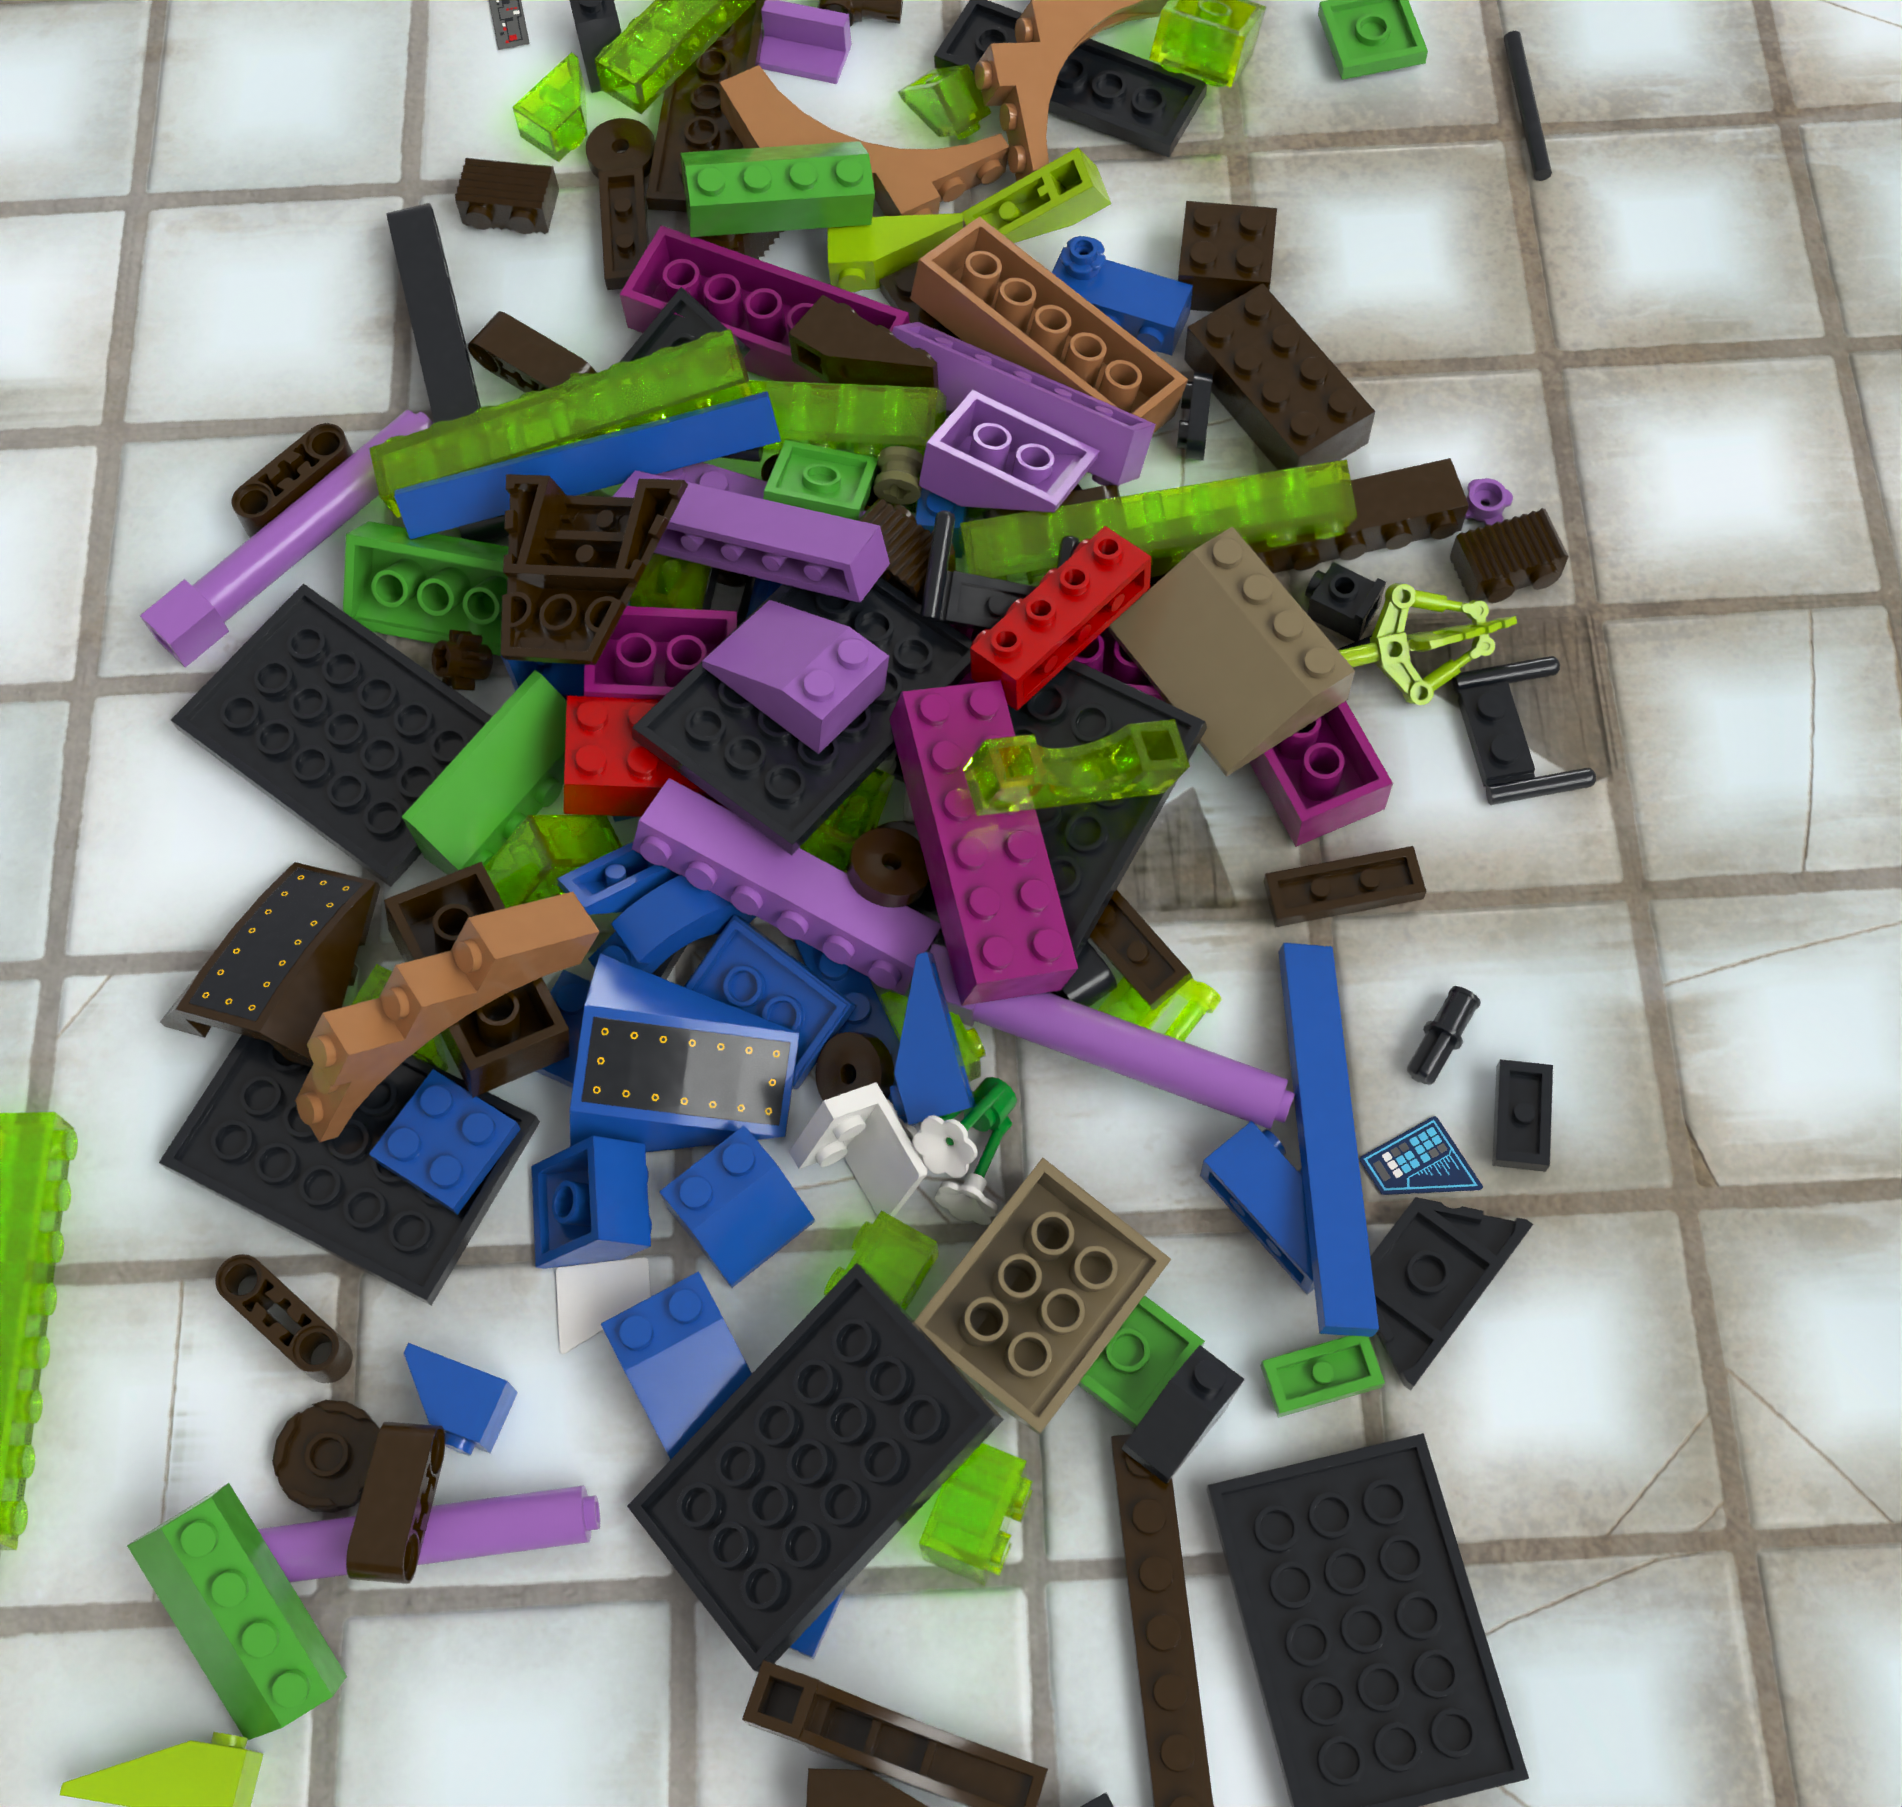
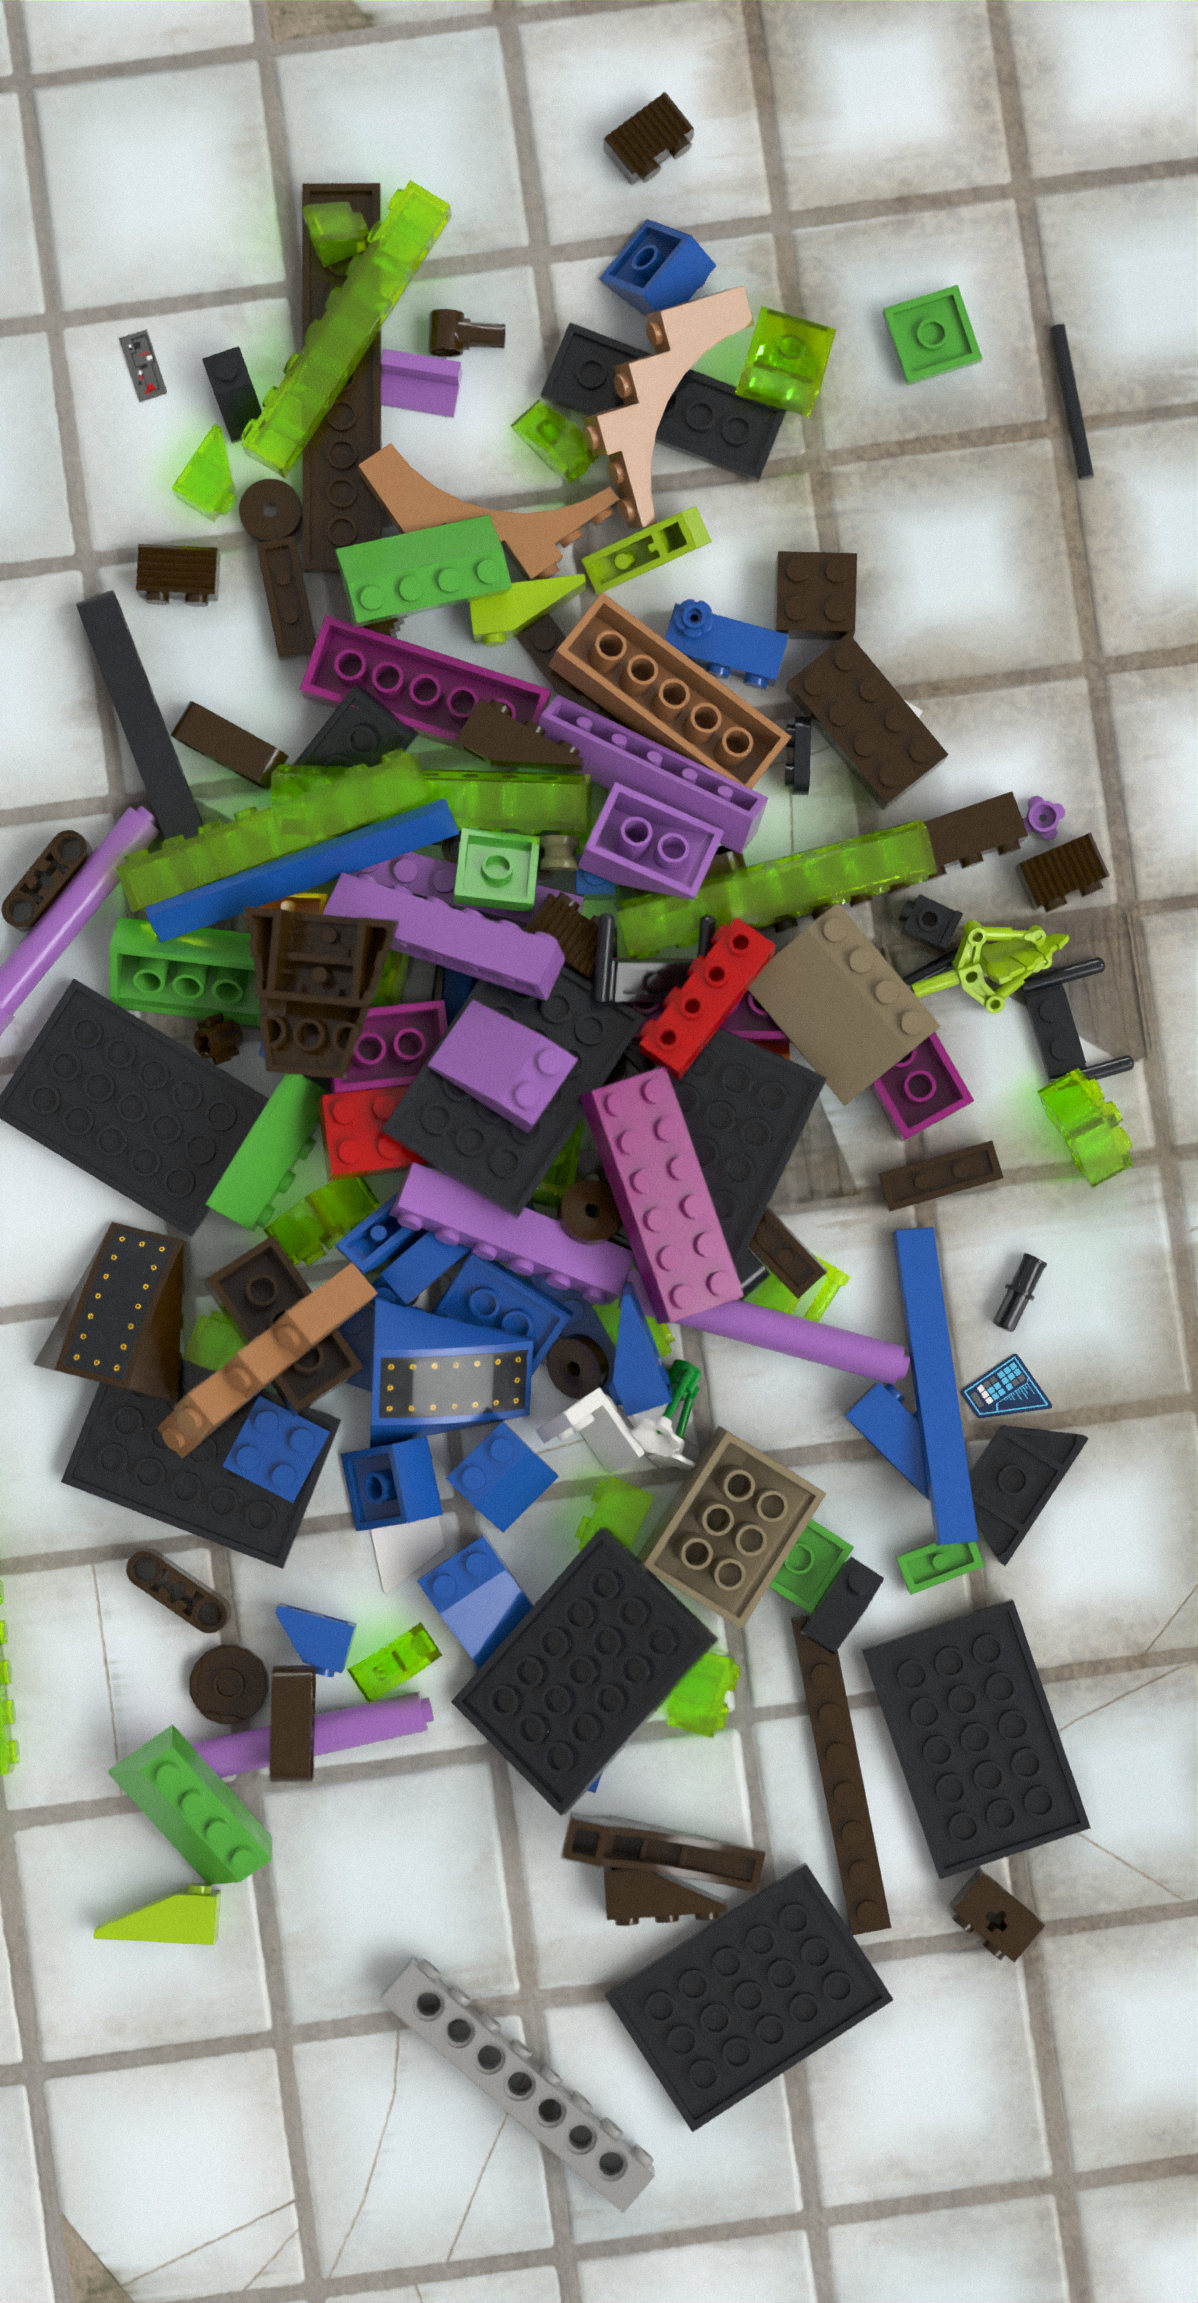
camera: 10 degrees left, 20 degrees up
(557, 1441) = (395, 1662): none -> clear neon green slope
(1021, 775) = (731, 1145): clear neon green arch -> none
(1522, 1115) = (1080, 1351): black plate -> none
(1541, 834) = (1088, 1126): none -> clear neon green brick

